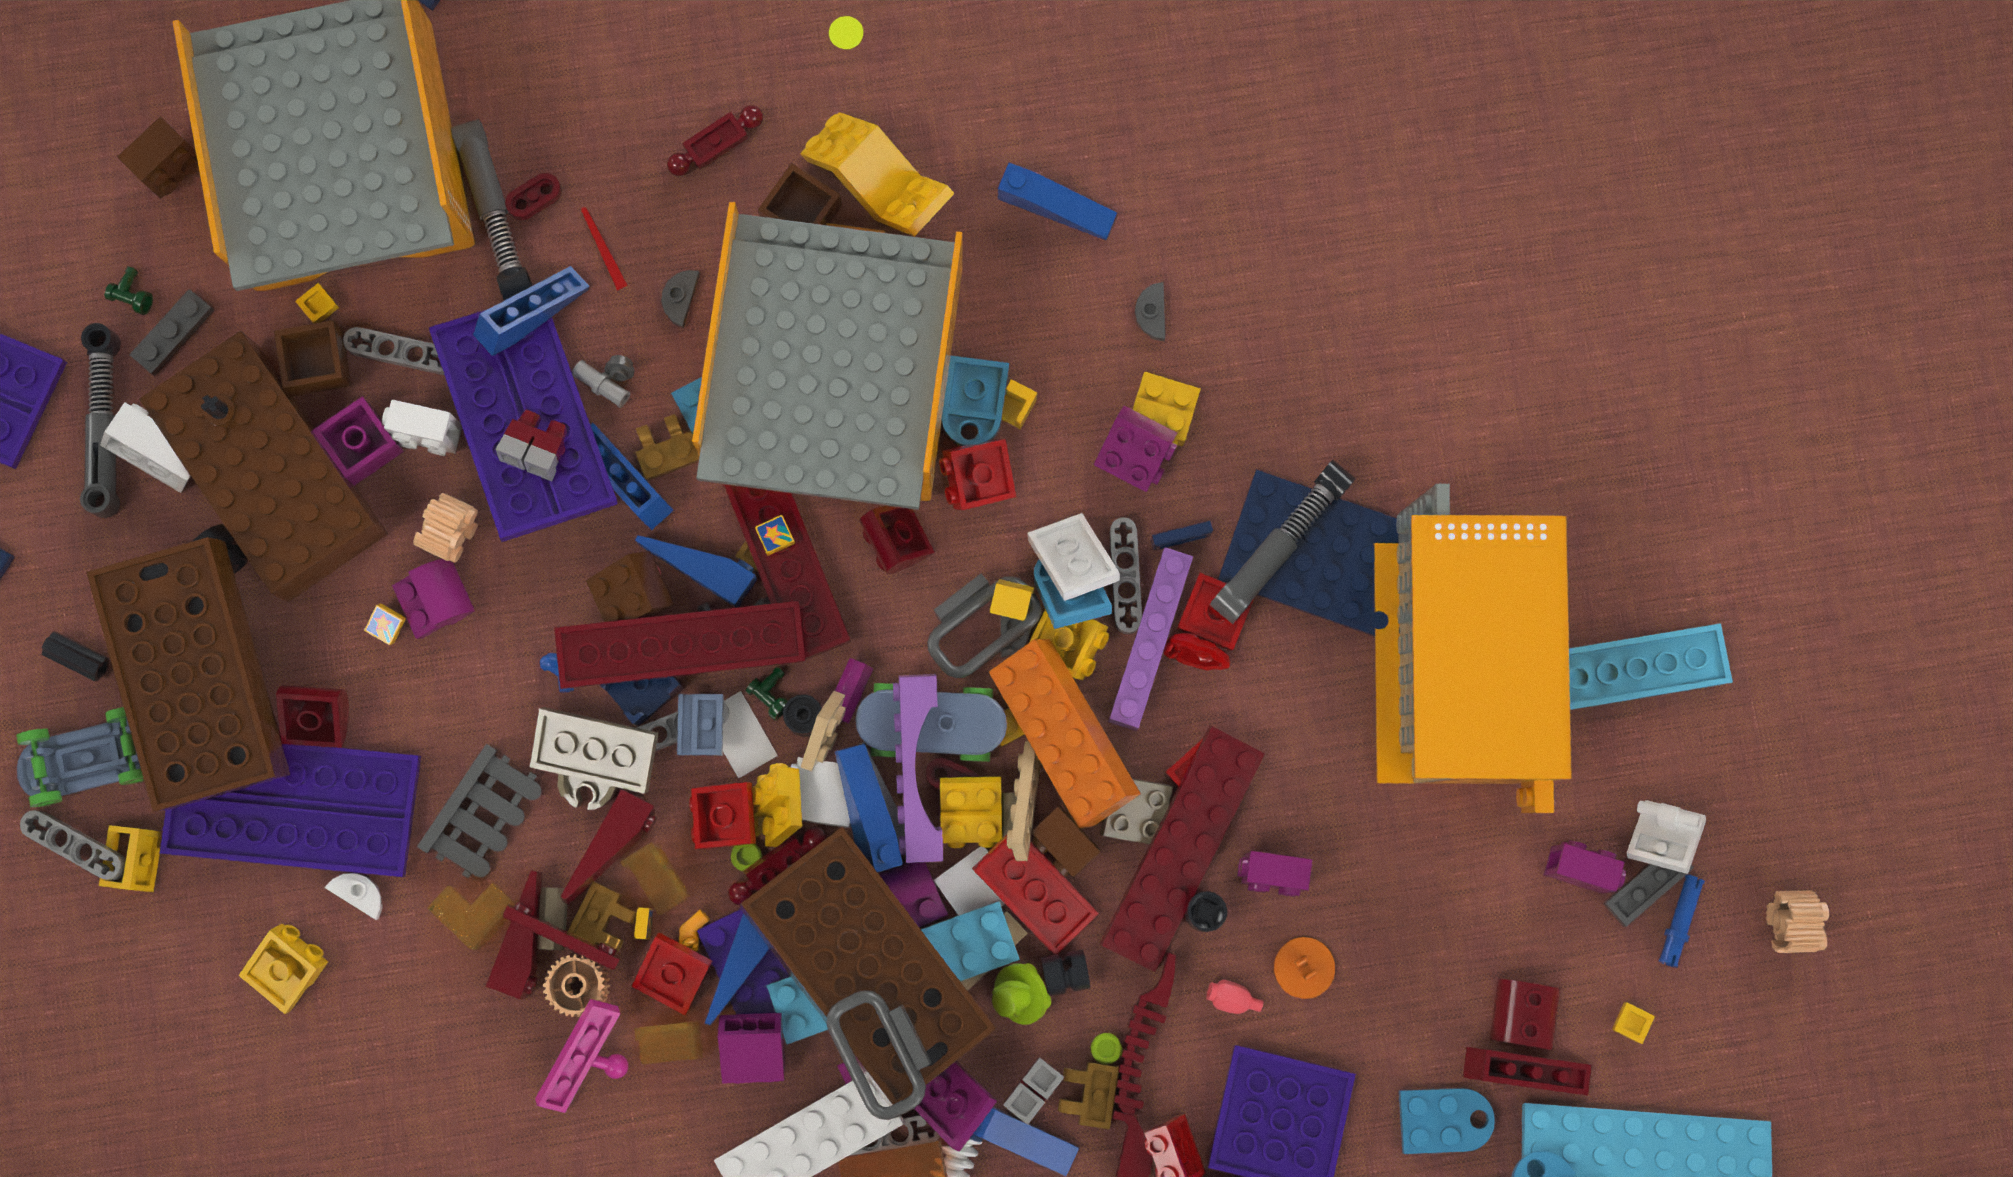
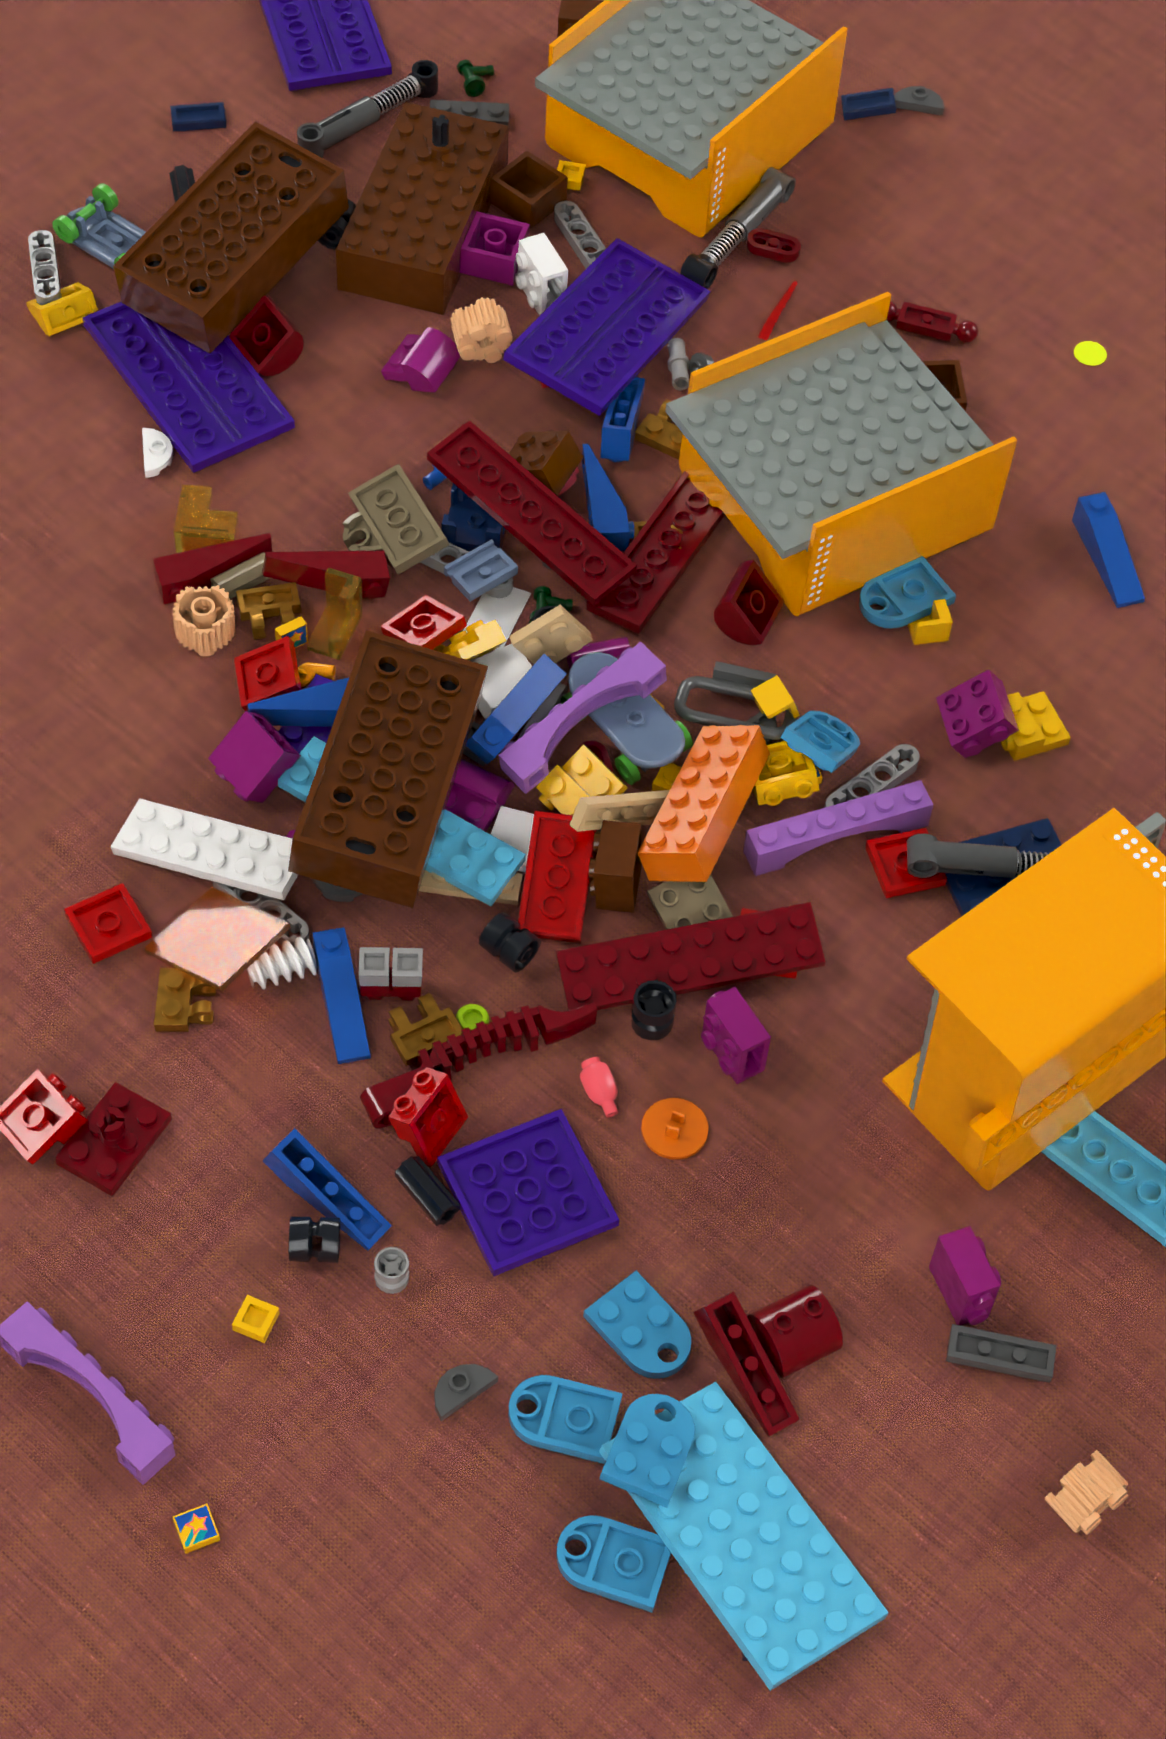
camera: 50 degrees right, 25 degrees down
(142, 444) = (371, 123): white slope -> none
(283, 967) = (60, 436): yellow plate -> none
(385, 624) = (374, 347): tile -> none
(470, 824) = (282, 467): dark grey fence -> none
(522, 313) = (683, 279): blue slope -> none
(532, 448) = (591, 329): hips -> none
(580, 1054) = (148, 649): dark pink plate -> none
(602, 954) = (229, 538): dark red plate -> none
(669, 1042) = (213, 706): clear yellow panel -> none
(775, 535) = (672, 528): tile -> none
(876, 173) = (1010, 408): yellow bracket -> none
(904, 1040) = (352, 809): dark grey bar -> none
(955, 1105) = (330, 914): magenta plate -> none
(977, 474) = (850, 627): red plate -> none
(1020, 994) = (460, 916): lime plate -> none
(1073, 556) = (849, 725): white plate -> none
(1150, 311) = (1095, 667): dark grey plate -> none
(1181, 535) = (946, 798): dark blue tile -> none
(1196, 652) = (858, 867): red arm -> none
(1633, 1022) = (868, 1425): yellow plate -> none
(1666, 836) = (1059, 1326): white plate -> none
(1681, 921) = (982, 1408): blue pin -> none

